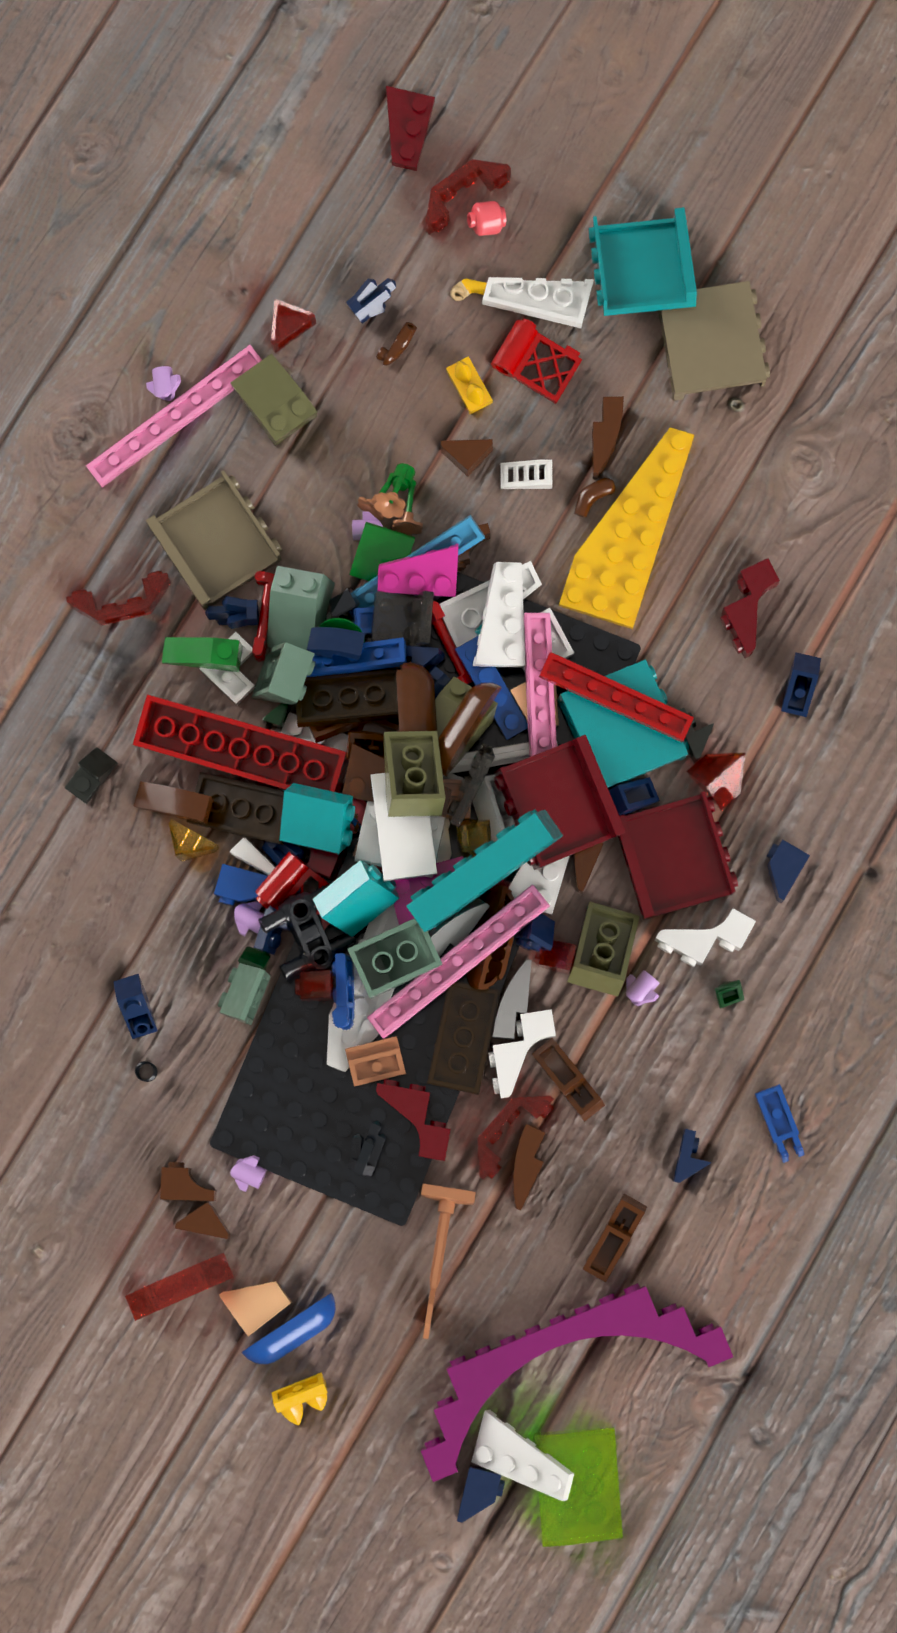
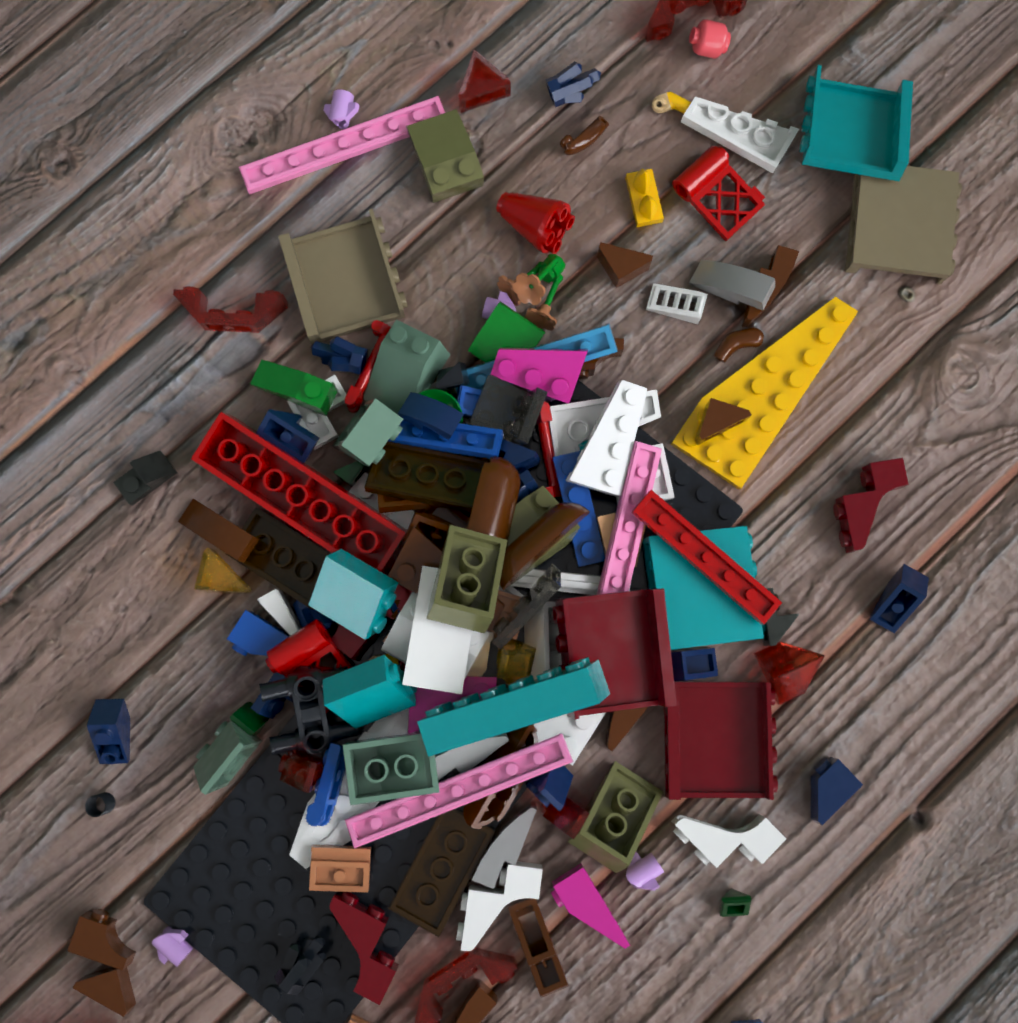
camera: 10 degrees right, 0 degrees up
(210, 697) = (286, 433): none -> dark blue slope
(247, 917) = (255, 672): lavender piece -> none
(376, 435) = (537, 219): none -> red cone
(572, 443) = (733, 283): none -> light grey slope
(594, 570) = (719, 418): none -> reddish brown slope
(597, 1028) = (584, 902): none -> dark pink slope

